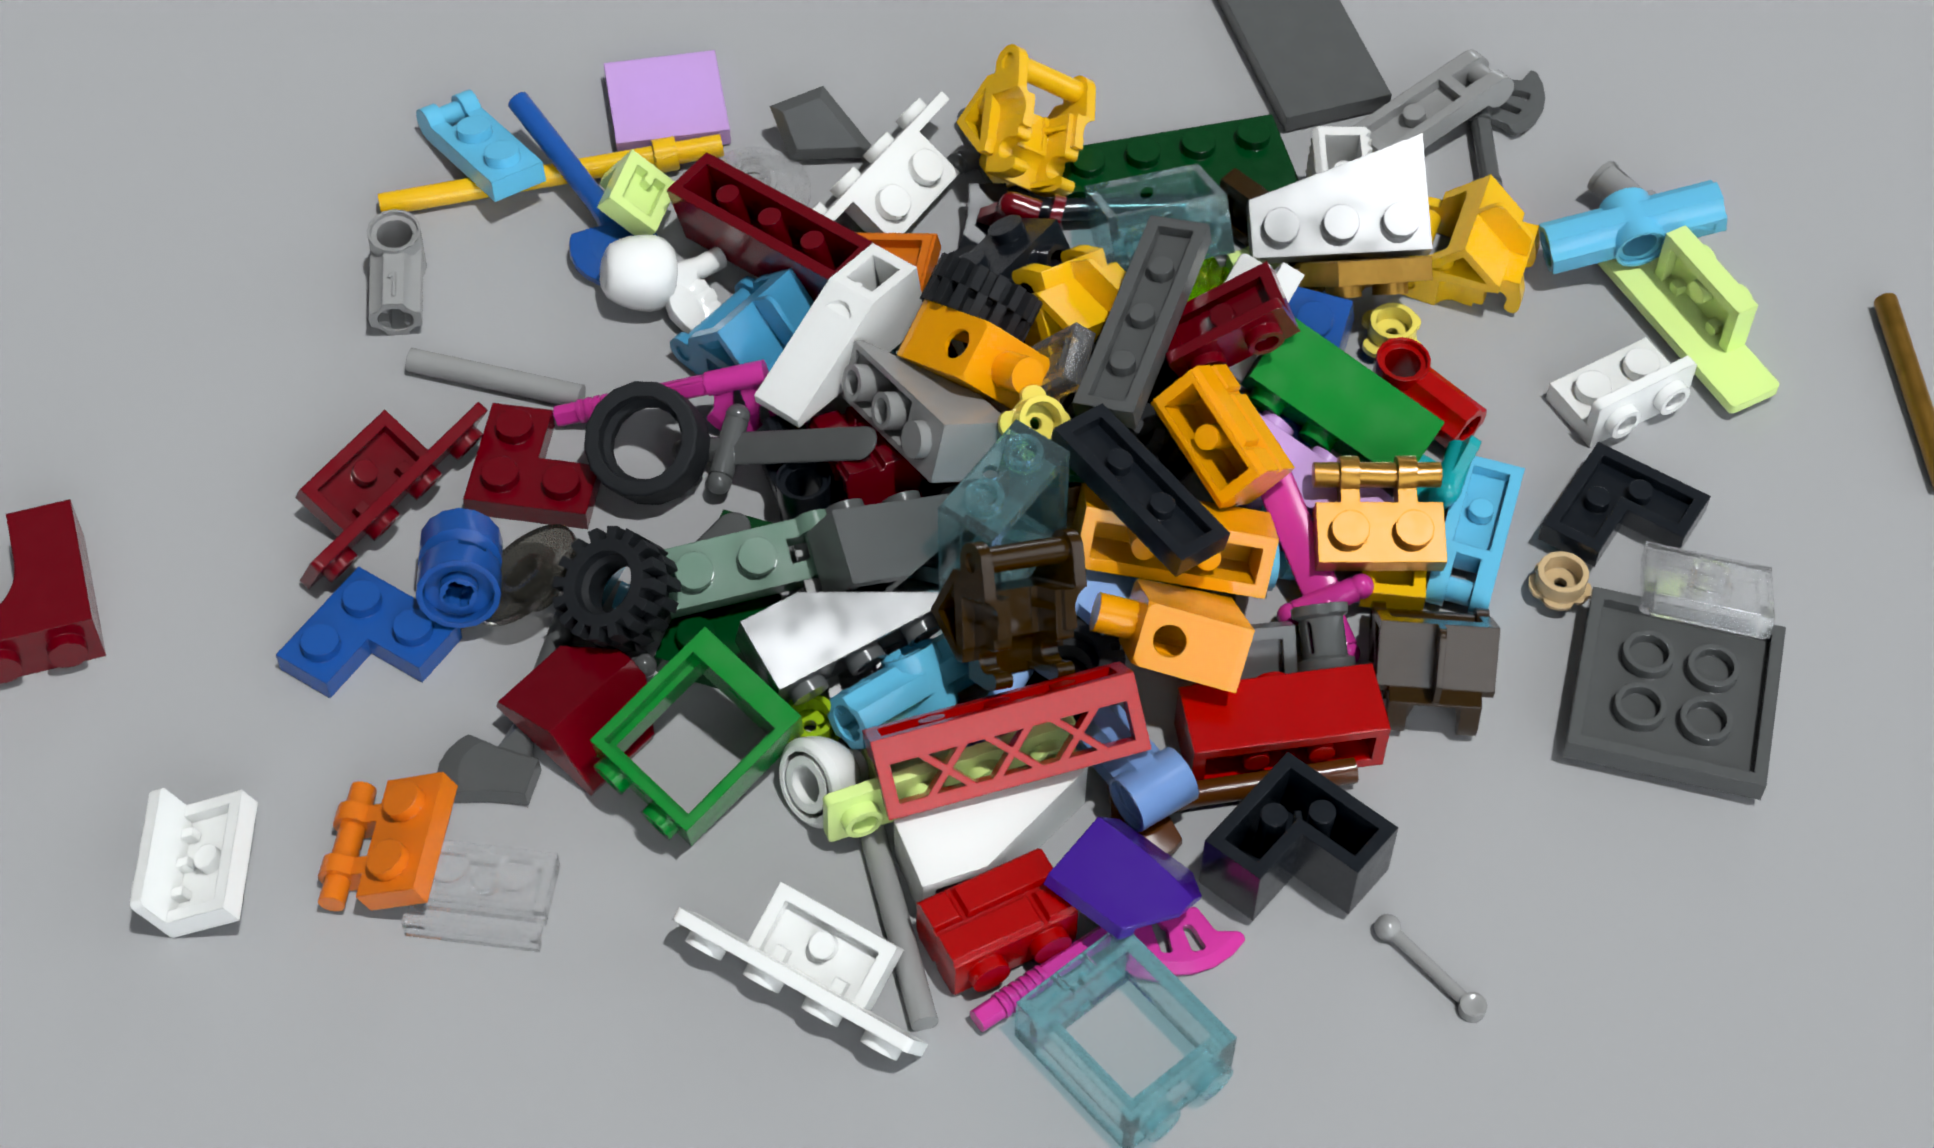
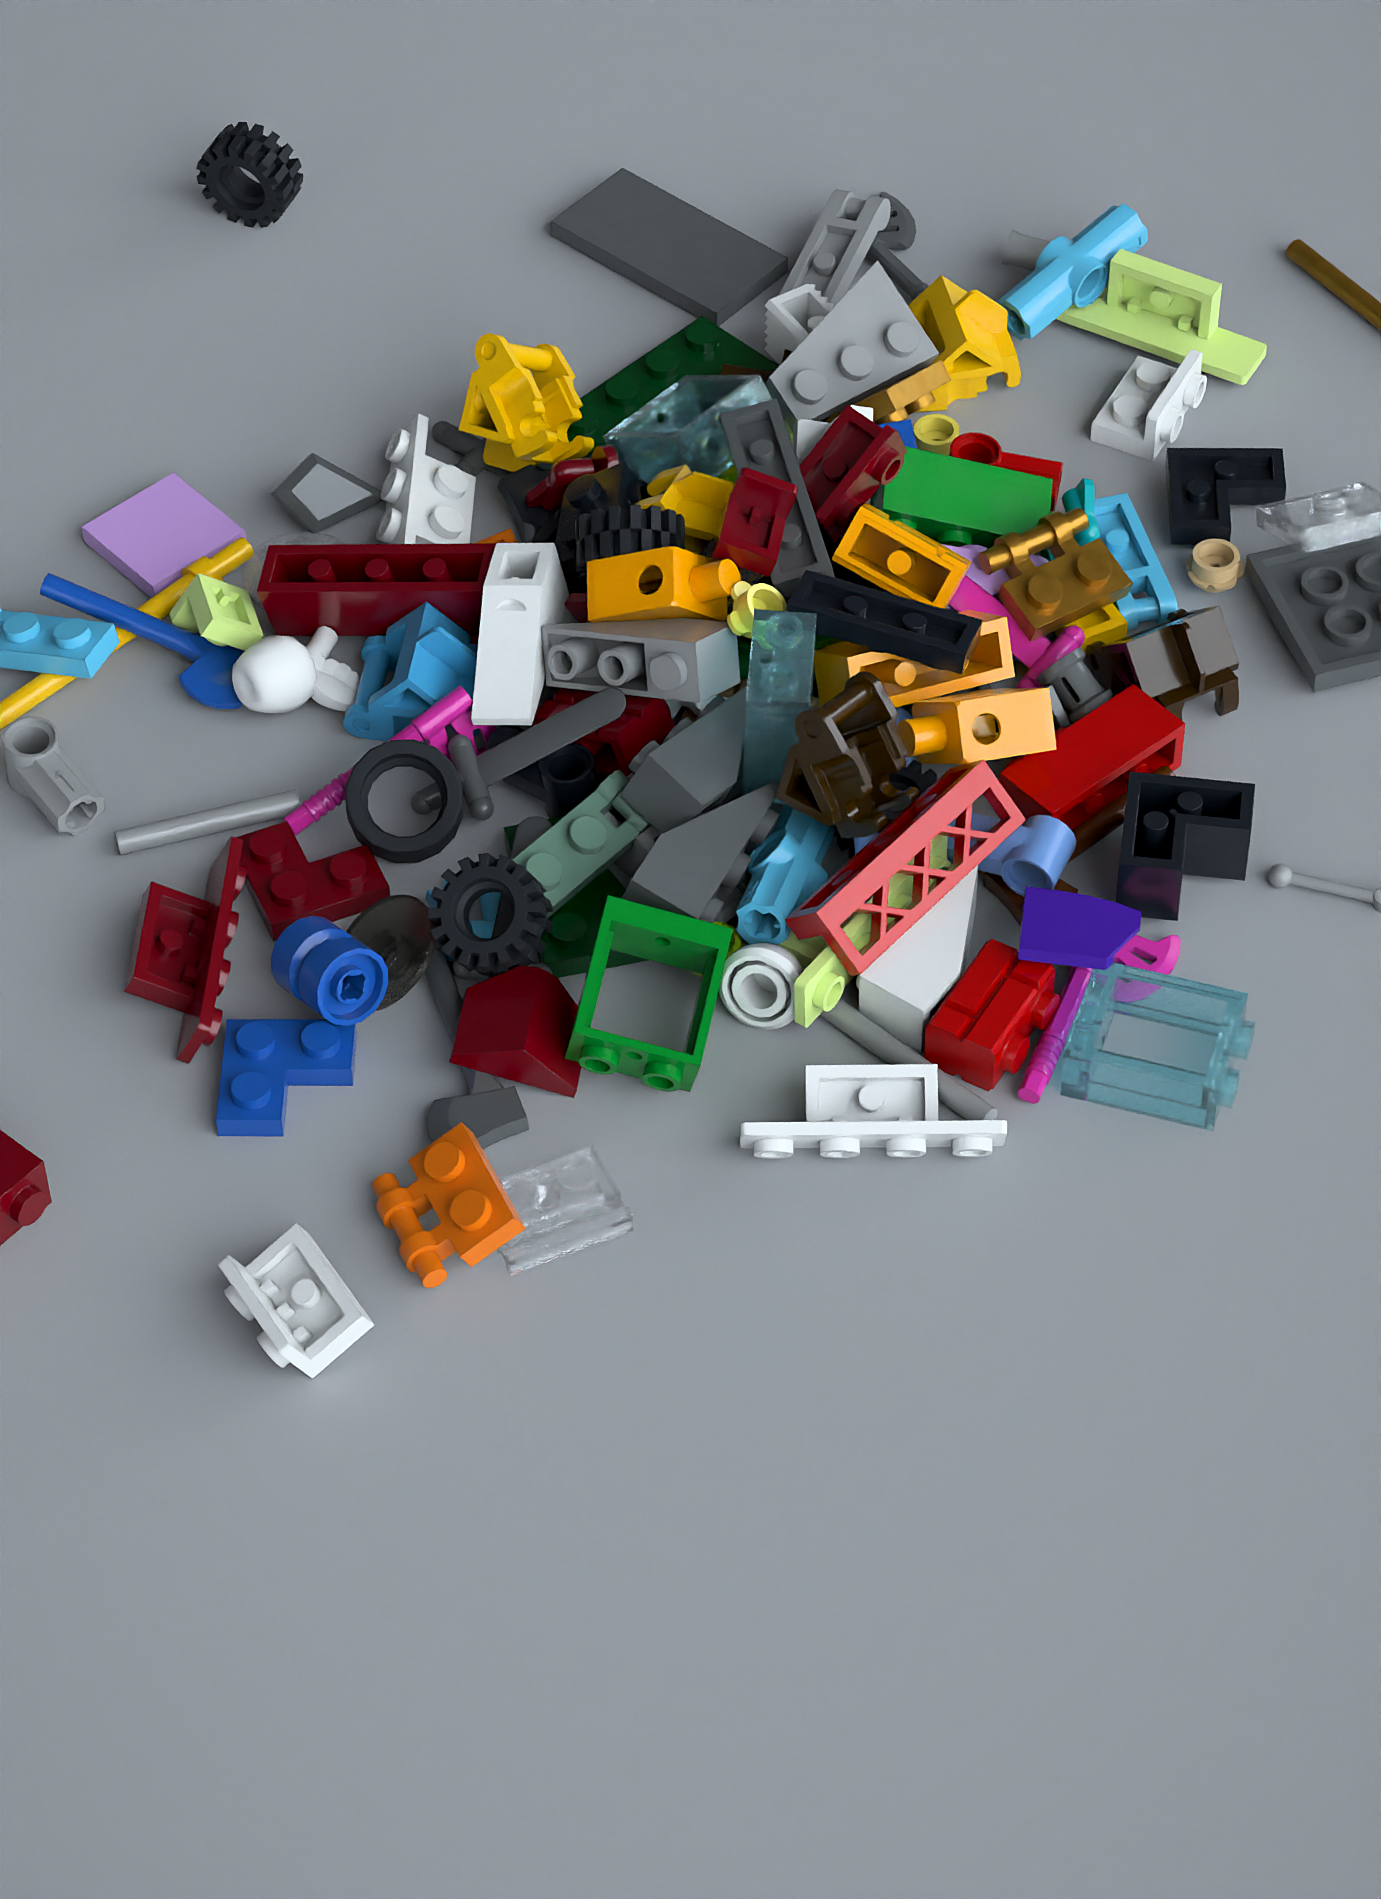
camera: 30 degrees left, 5 degrees down
(1083, 335) = (754, 521): none -> dark red bracket

